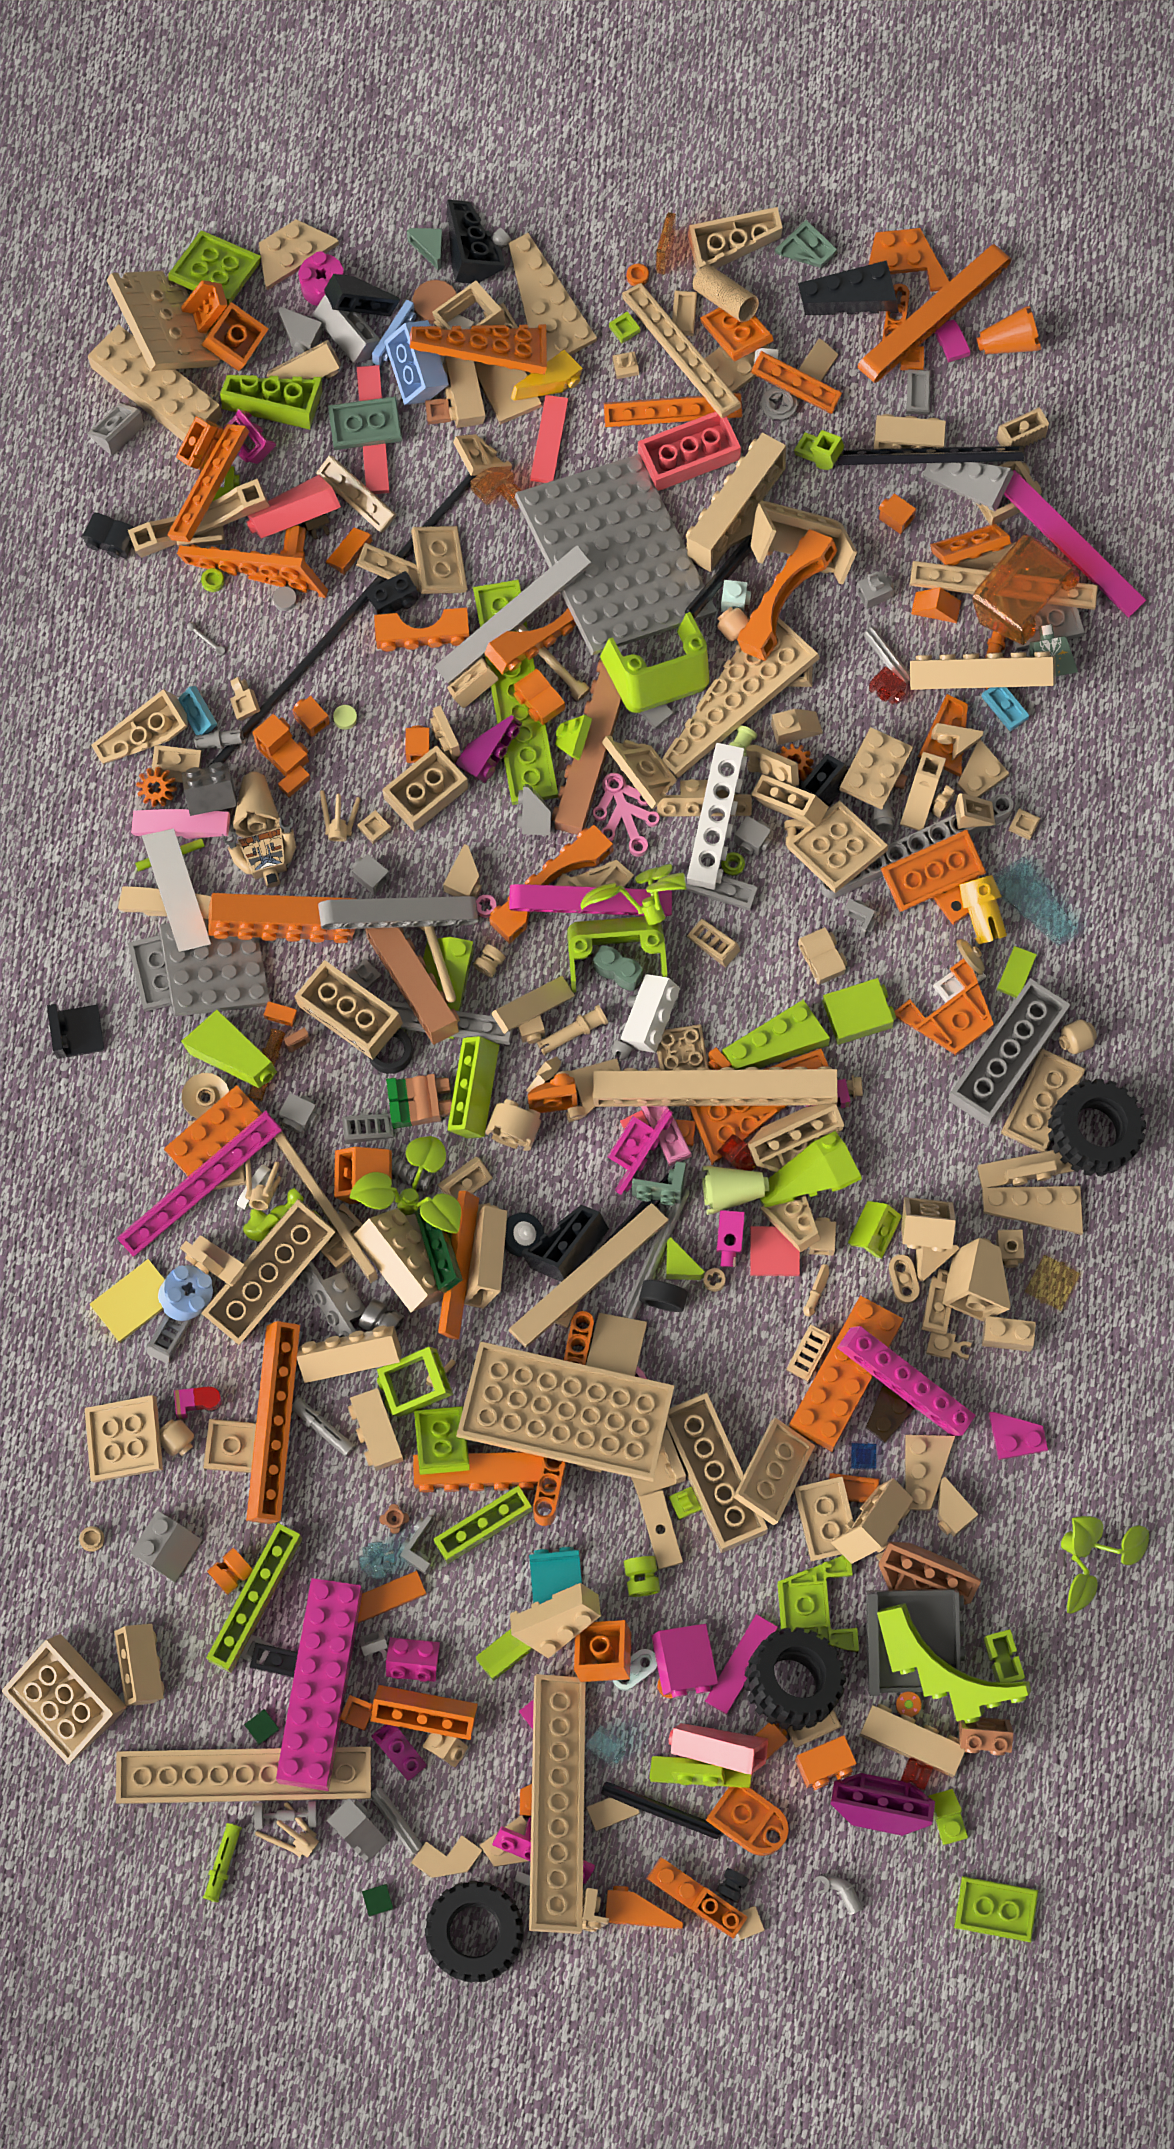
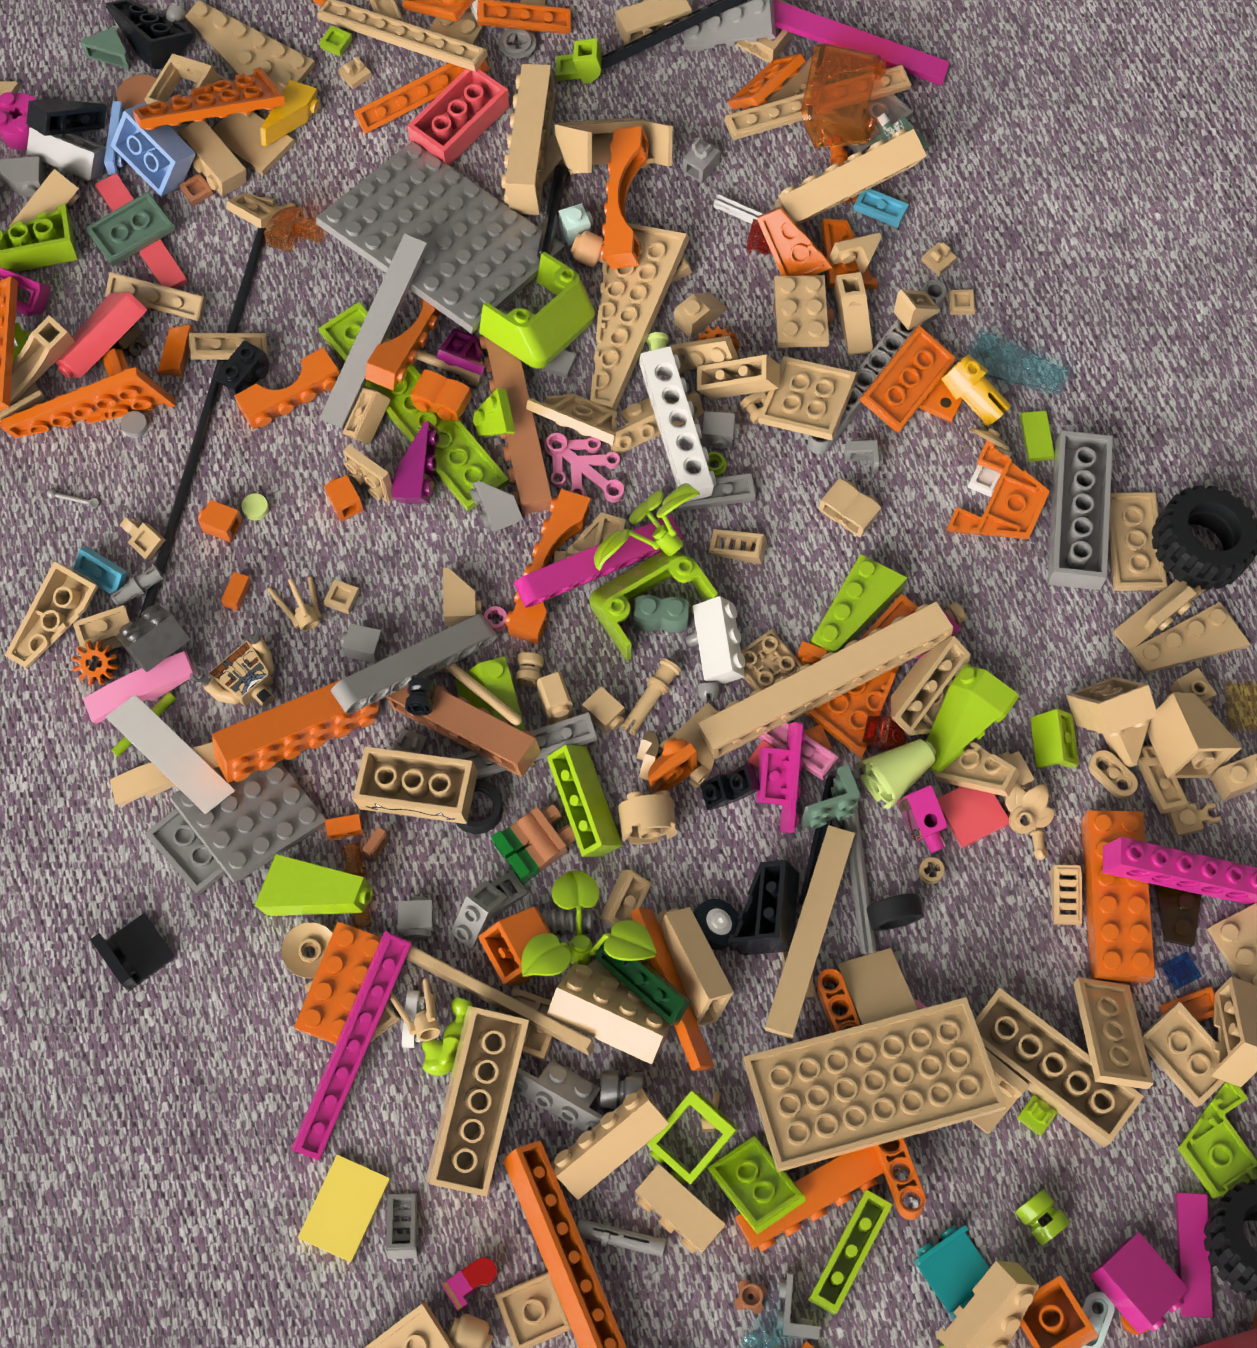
camera: 30 degrees left, 5 degrees down
(172, 1291) = (389, 1158): light blue brick -> none
(212, 580) = (51, 440): lime tile -> none
(213, 1259) = (413, 1119): tan bracket -> none
(255, 807) = (210, 633): tan cone -> none
(276, 744) = (201, 564): orange brick -> none
(343, 1129) = (475, 911): none -> light grey bracket
(387, 941) = (420, 694): none -> black wheel
(425, 788) = (374, 534): tan brick -> none
(439, 559) = (270, 319): tan tile -> none
(493, 993) = (554, 698): none -> tan brick
(533, 1004) = (600, 688): tan tile -> none
(549, 439) = (317, 166): coral tile -> none
(578, 666) = (462, 351): none -> magenta wing
(593, 1135) = (730, 788): none -> black slope
(656, 1515) = (1017, 1142): tan tile -> none
(680, 1264) = (889, 871): lime slope -> none
(820, 1268) = (1030, 804): none -> tan plate
(826, 779) = (759, 338): black brick -> none
(858, 1011) = (915, 542): lime brick -> none
(883, 819) = (830, 355): light grey cone -> none
(896, 513) = (681, 87): orange brick -> none
(900, 708) = (790, 245): none -> orange wing
(937, 605) = (764, 149): orange slope -> none
(943, 801) = (877, 314): tan plate -> none
(981, 772) = (894, 273): tan wing -> none
(1028, 776) = (939, 258): none -> tan tile
(1077, 1036) = (1131, 465): tan head -> none

